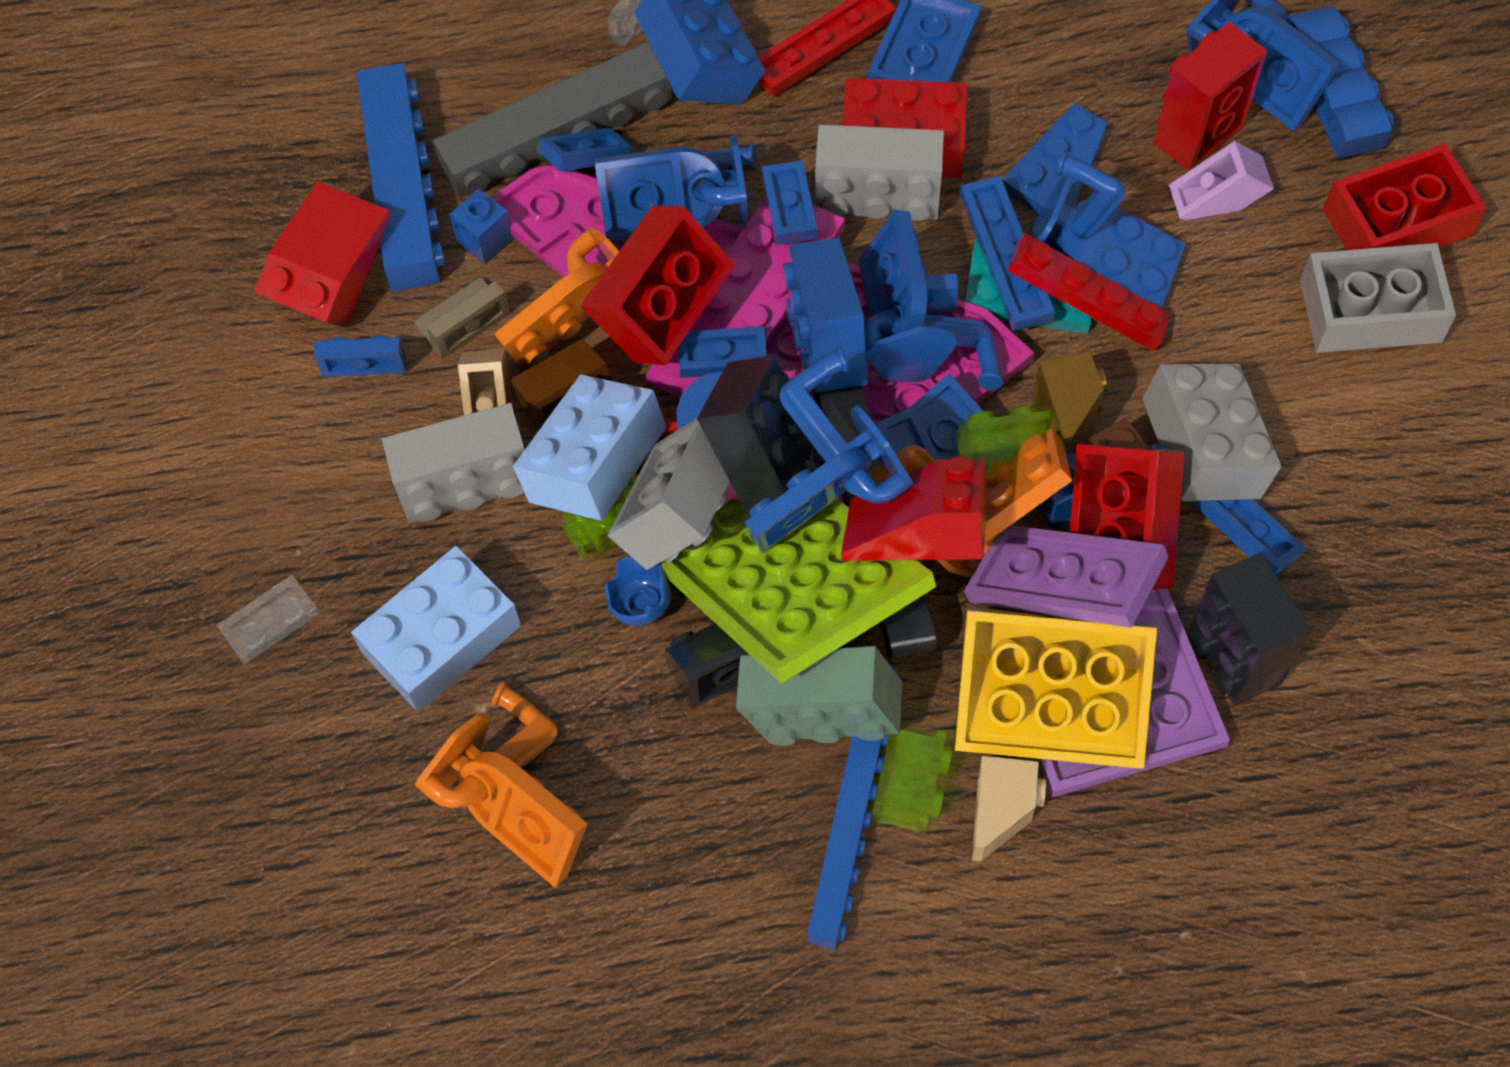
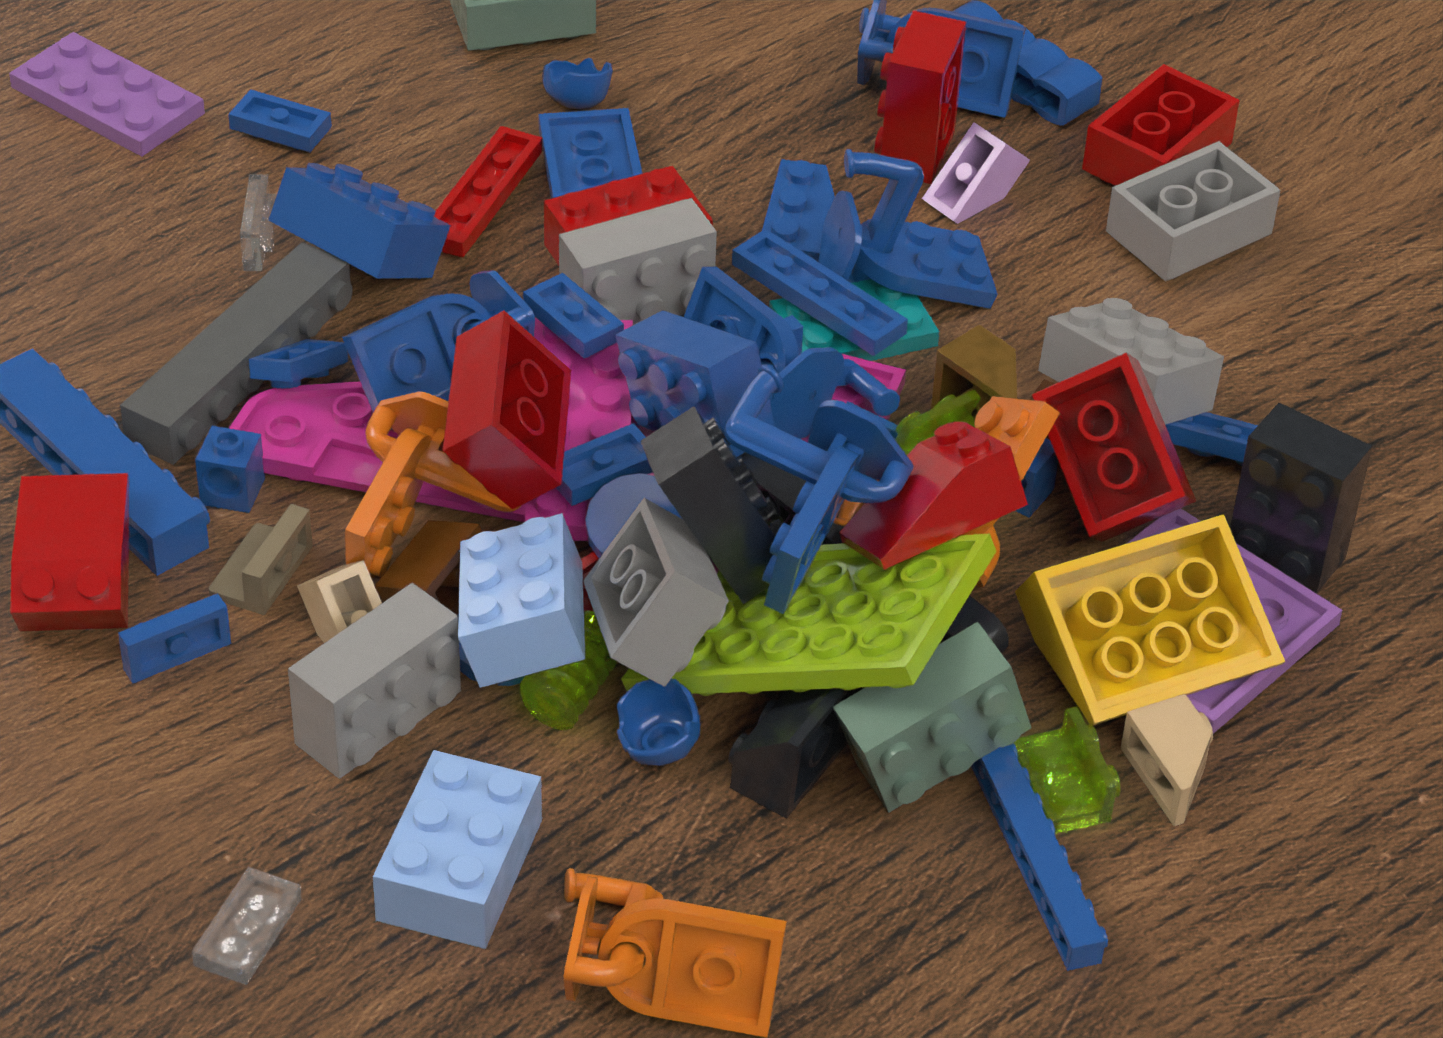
camera: 35 degrees left, 20 degrees down
(1067, 575) = (1101, 511): medium lavender plate -> none
(1088, 292) = (911, 292): red plate -> none

